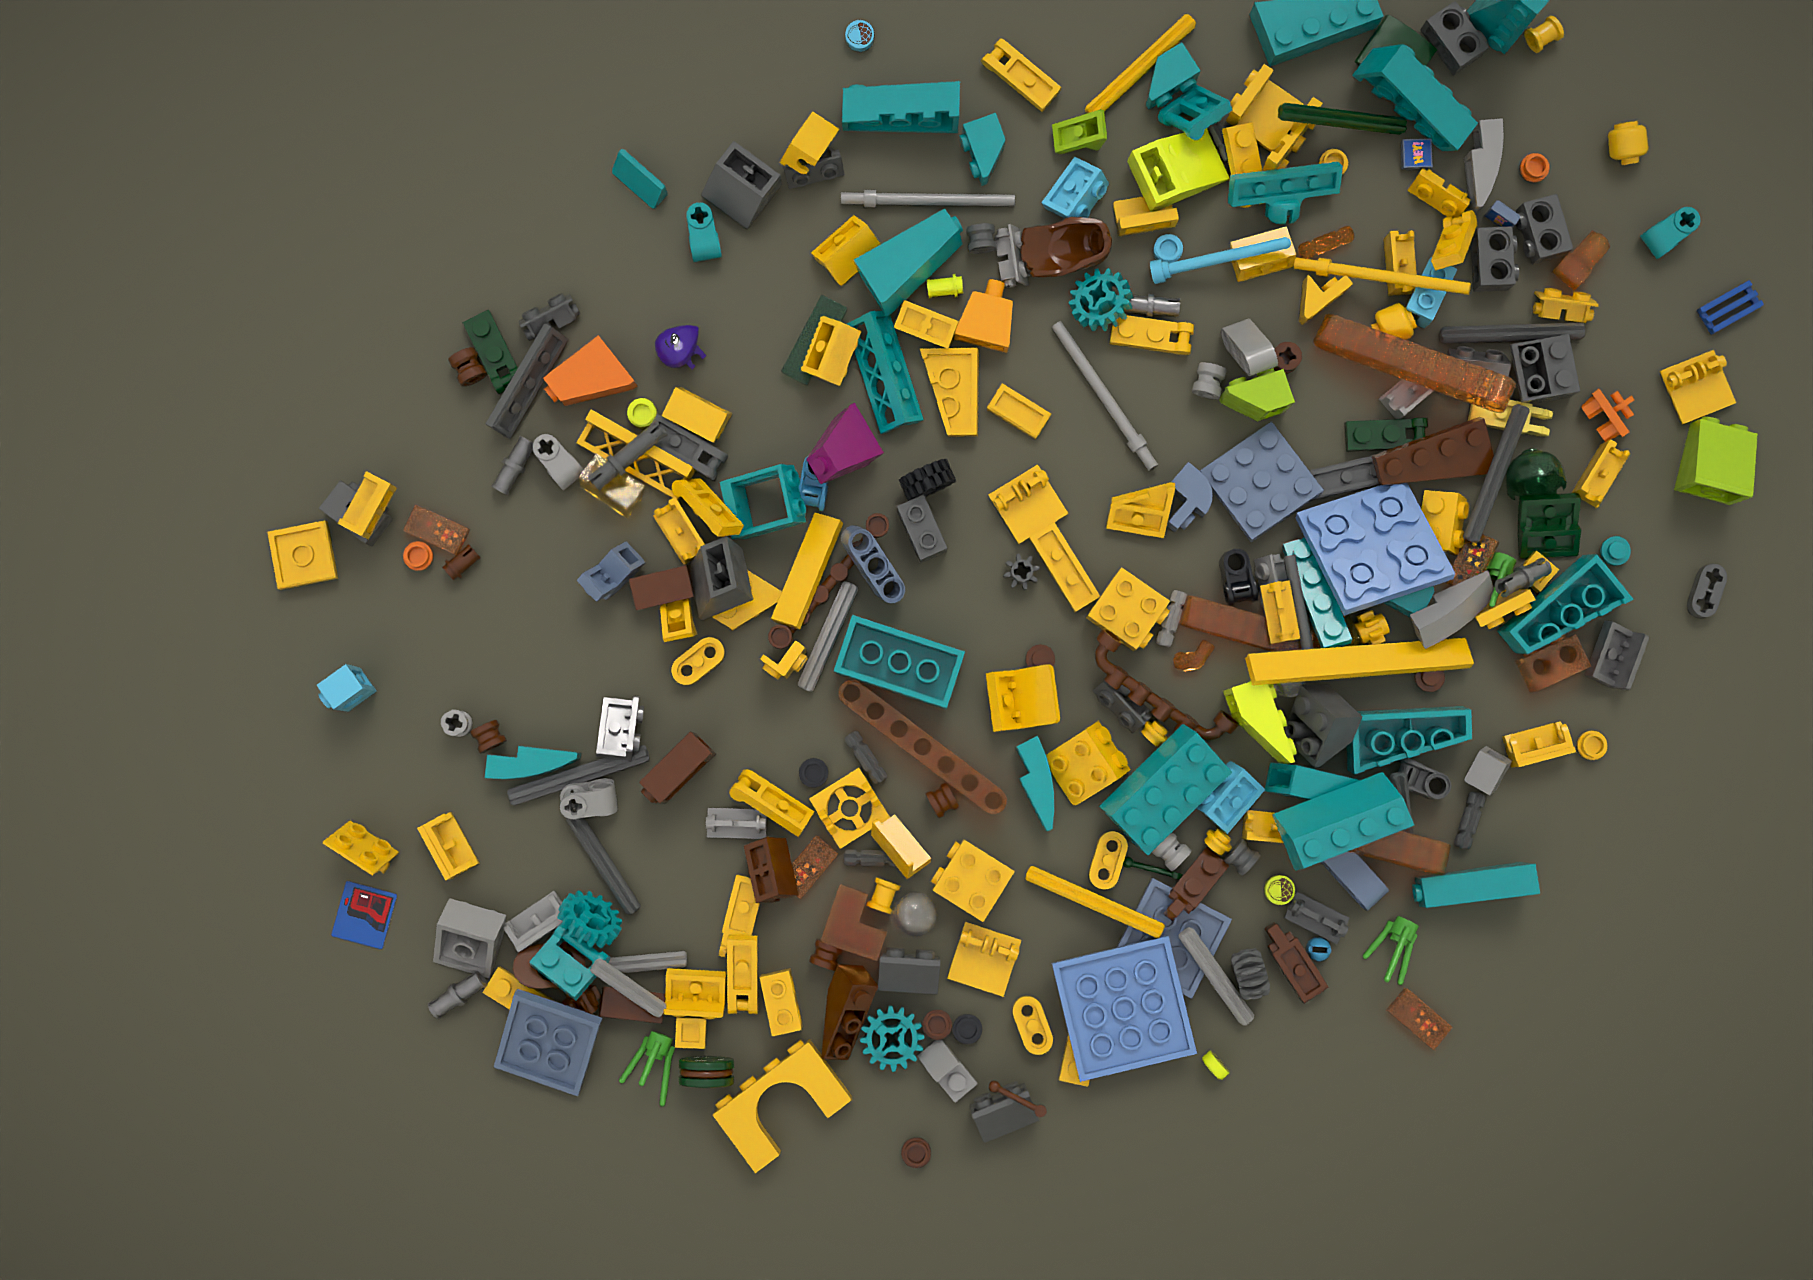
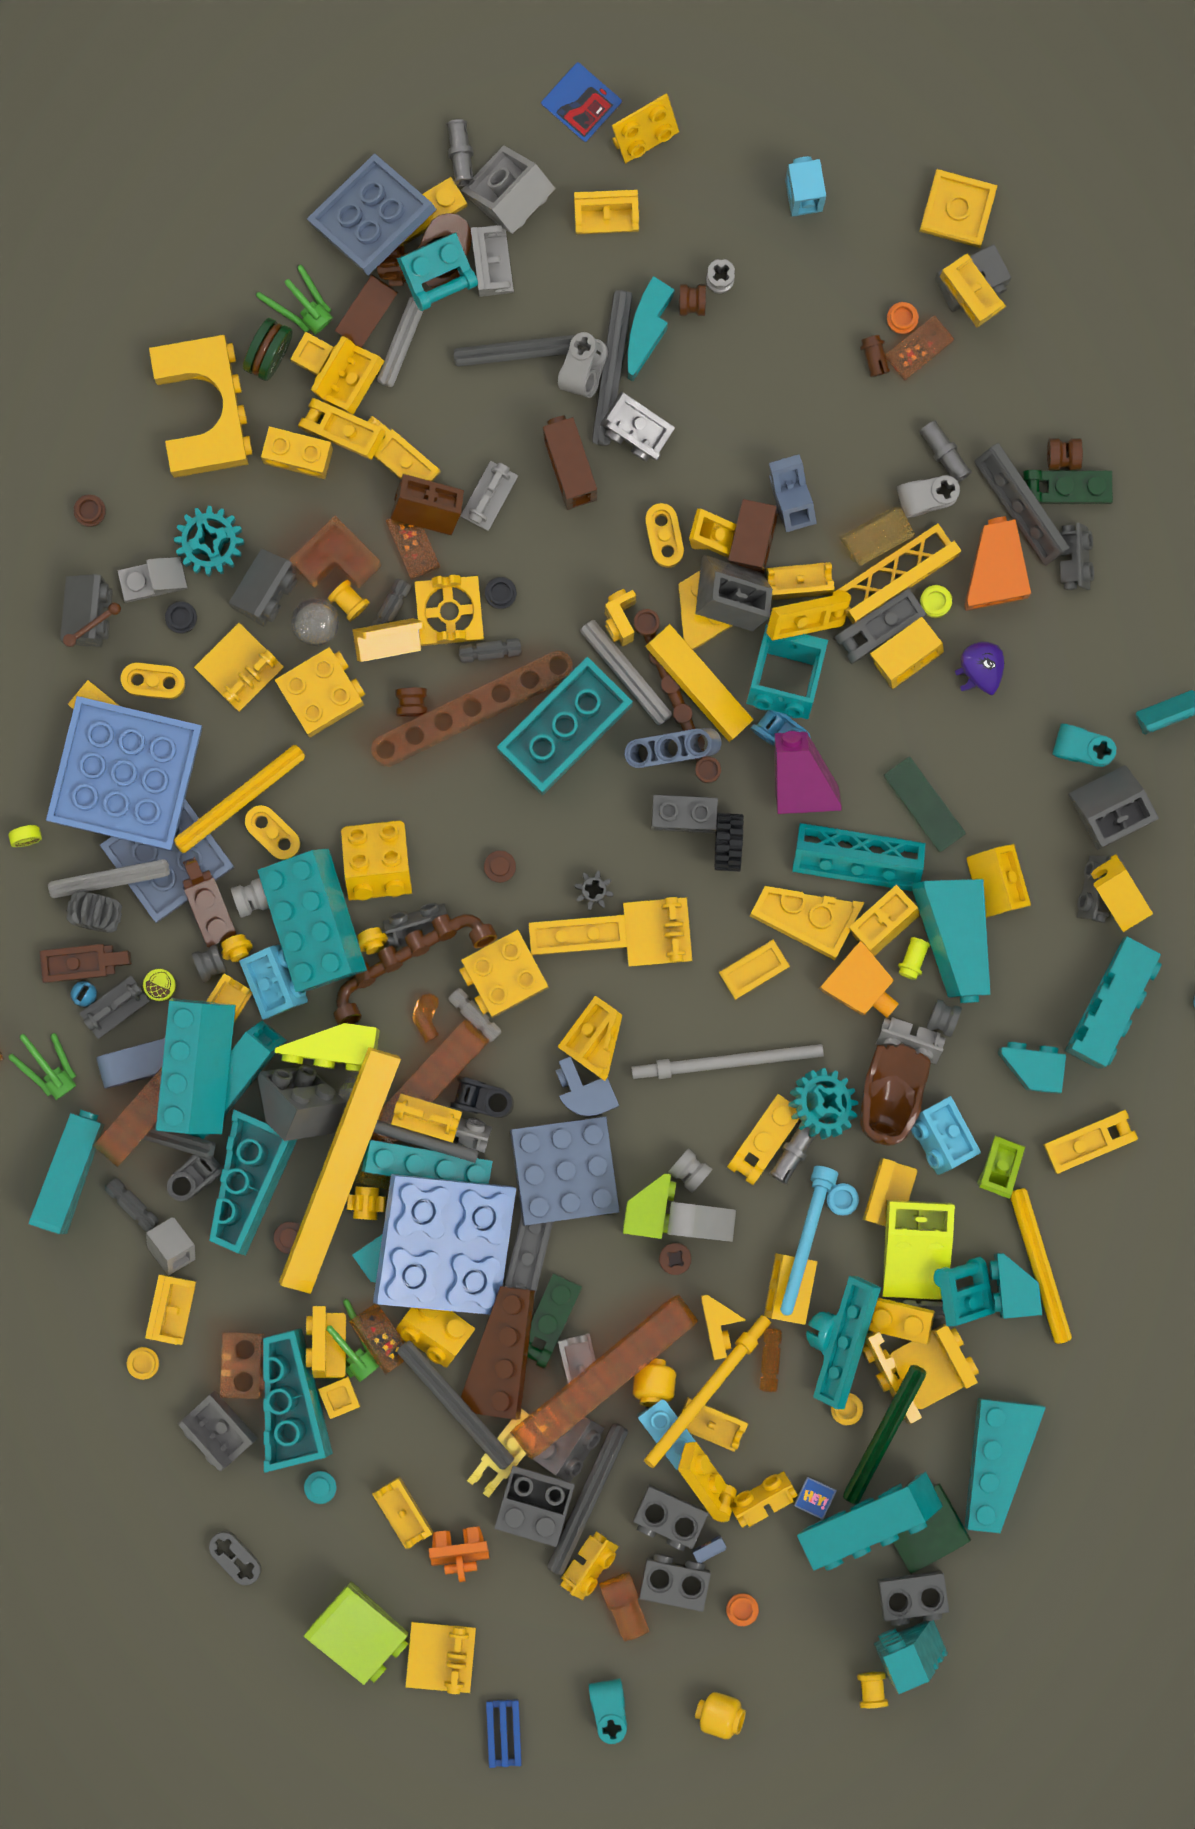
camera: 115 degrees right, 0 degrees up
(589, 919) = (467, 309): teal gear -> none
(627, 455) = (896, 561): dark grey pin -> none
(628, 987) = (383, 313): light grey axle -> none
(771, 801) = (492, 538): yellow plate -> none
(825, 955) = (318, 515): reddish brown wheel -> none
(831, 350) = (903, 812): yellow brick -> none
(846, 1009) = (259, 511): reddish brown slope -> none
(871, 199) = (1038, 930): light grey bar -> none
(937, 1024) = (199, 590): reddish brown plate -> none
(1023, 698) = (470, 827): yellow bracket -> none
(1038, 781) = (382, 803): teal slope -> none
(1129, 862) = (260, 852): dark green hinge -> none
(1452, 609) = (344, 1289): light grey slope -> none
(1484, 161) = (771, 1559): light grey slope -> none
(1523, 577) = (340, 1373): flat silver pin -> none
(1534, 474) = (435, 1443): clear green cylinder -> none
(1549, 525) = (378, 1434): dark green slope -> none

